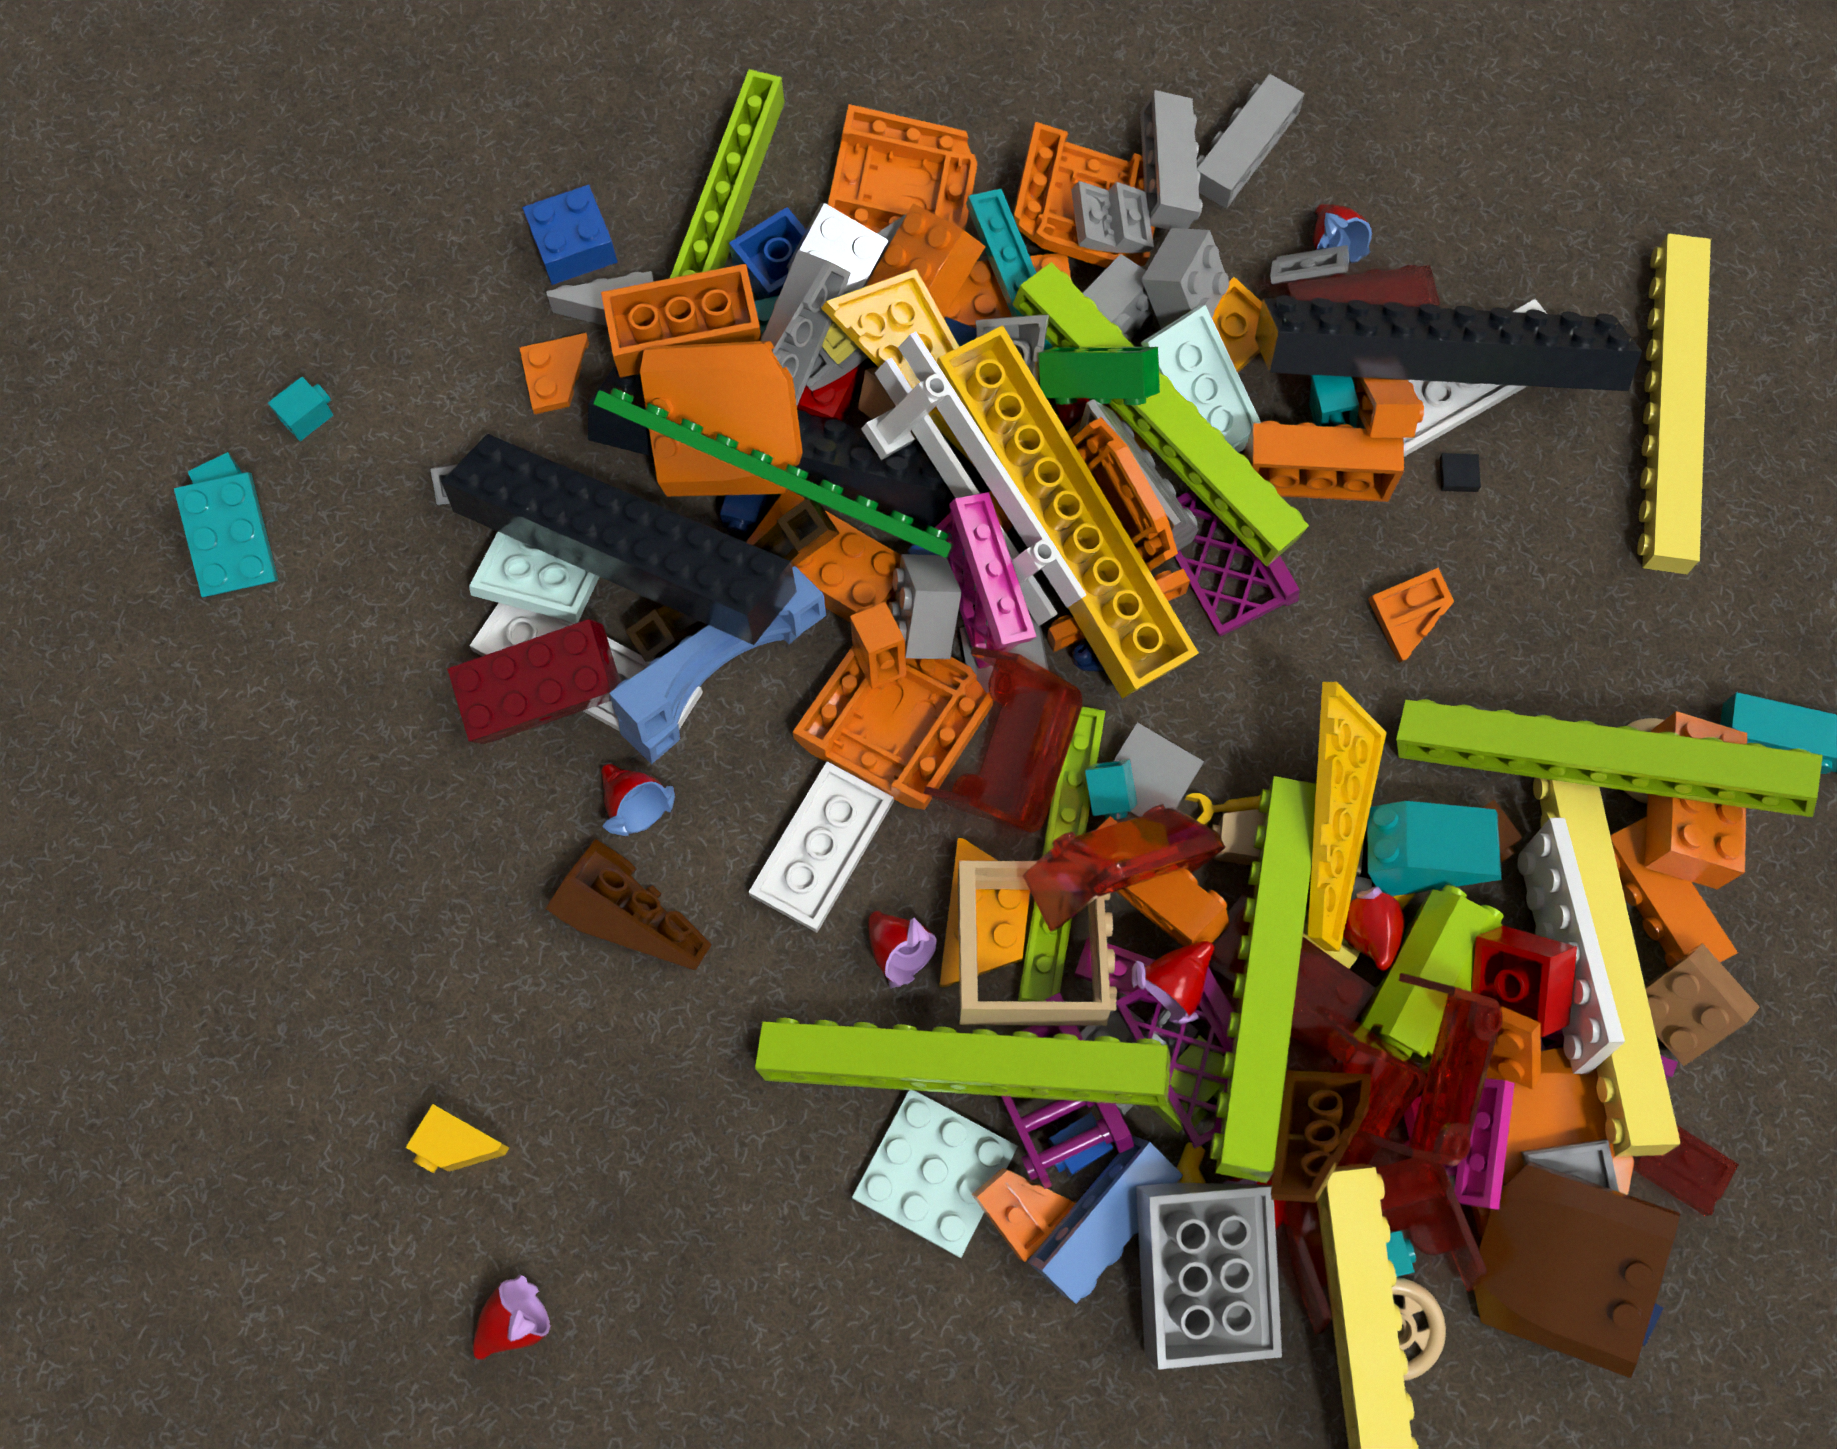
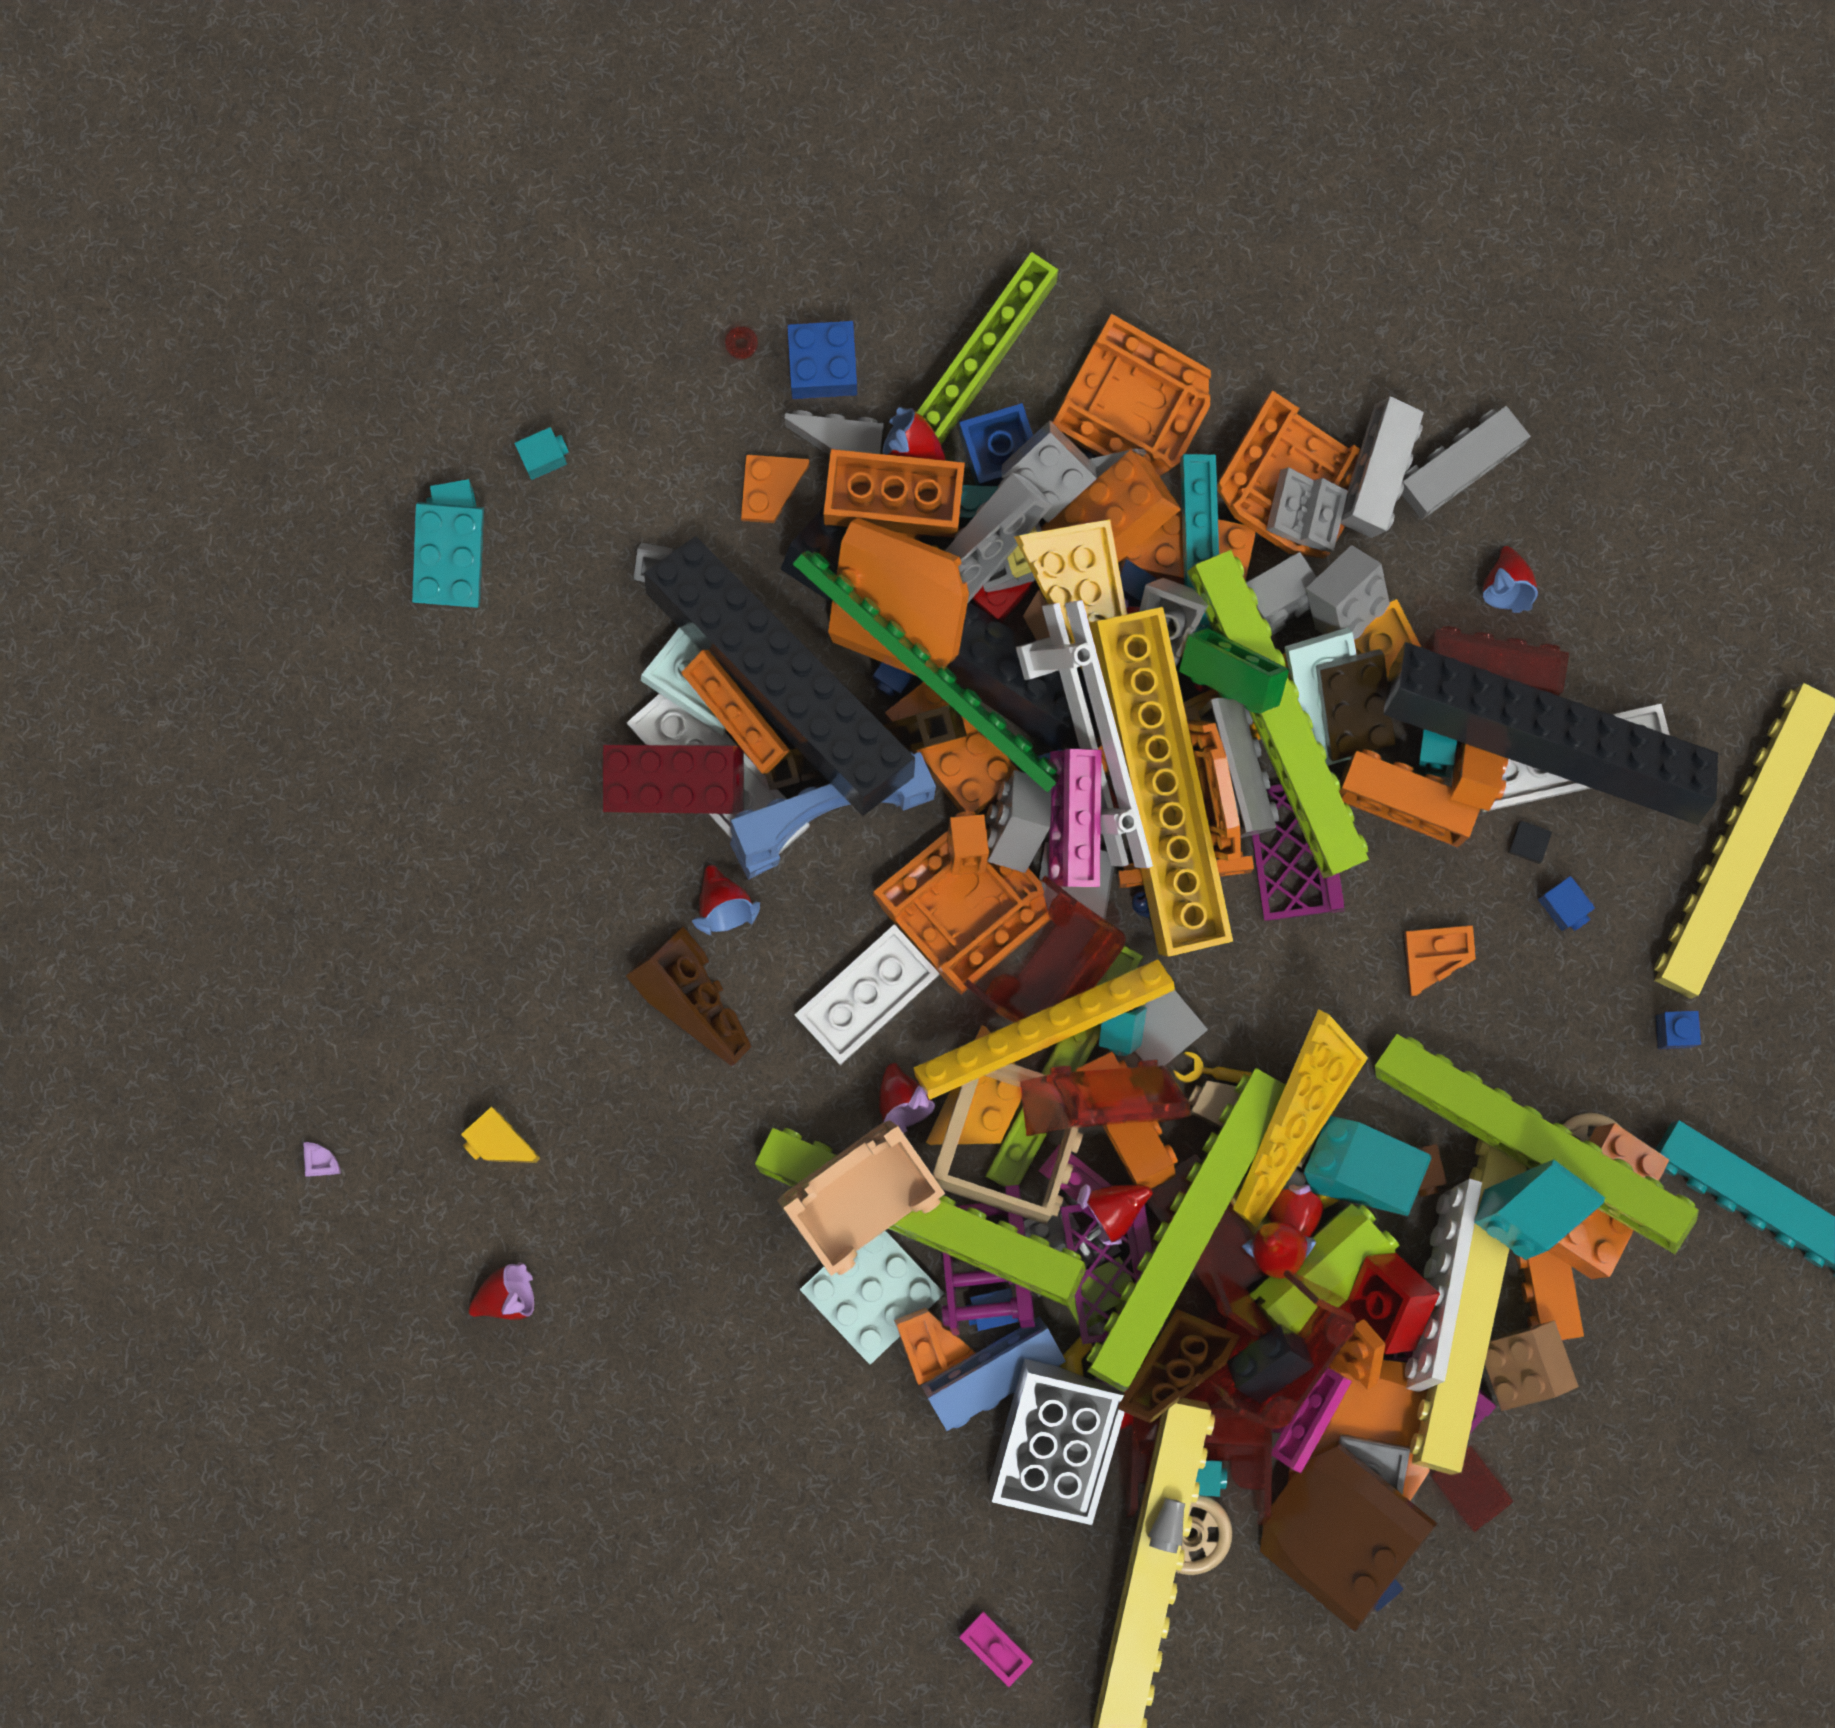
camera: 15 degrees right, 10 degrees up
(250, 1236) = (319, 1161): none -> lavender tile
(482, 237) = (741, 333): none -> clear red plate
(582, 589) = (735, 711): none -> orange plate
(682, 257) = (912, 437): none -> hat
(888, 1058) = (860, 1195): none -> light nougat windscreen
(1025, 813) = (1043, 1029): none -> yellow plate
(1233, 381) = (1354, 704): none -> dark brown plate
(1310, 264) = (1468, 610): light grey slope -> none
(1375, 962) = (1279, 1248): none -> red hat
(1378, 1323) = (1168, 1527): none -> light grey cone
(1418, 1092) = (1270, 1363): none -> black brick
(1525, 518) = (1567, 905): none -> blue brick
(1641, 819) = (1536, 1208): none -> teal slope
(1692, 604) = (1678, 1030): none -> blue brick

